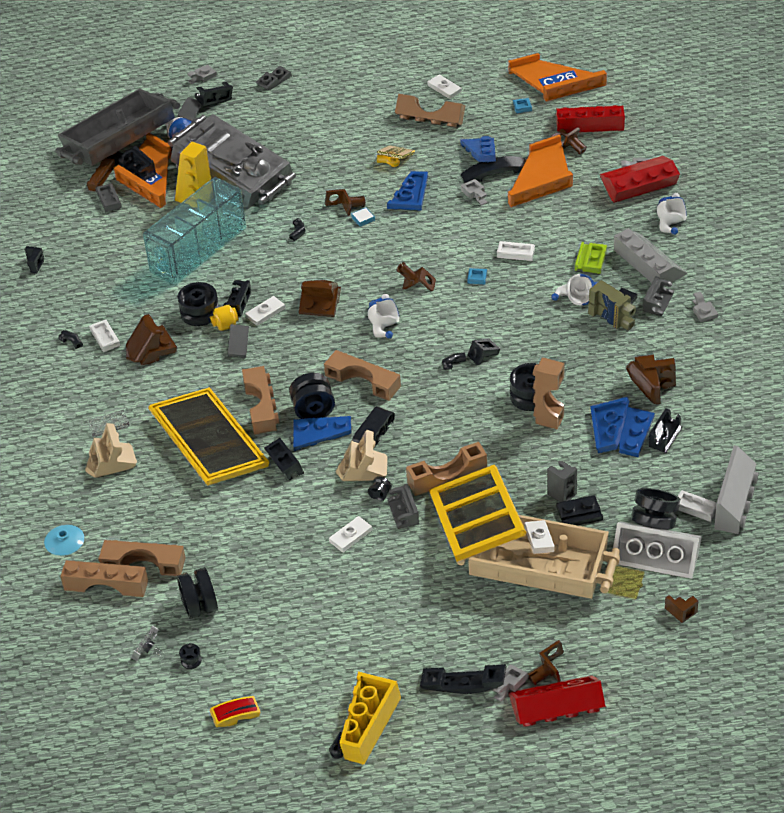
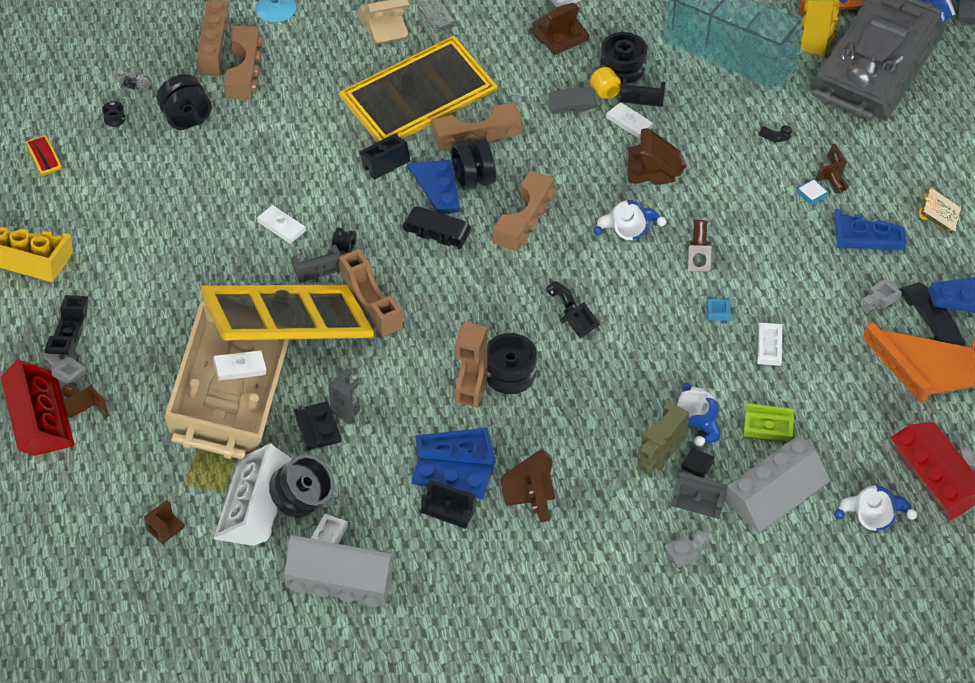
camera: 80 degrees right, 5 degrees up
(362, 462) = (381, 222): tan piece -> none

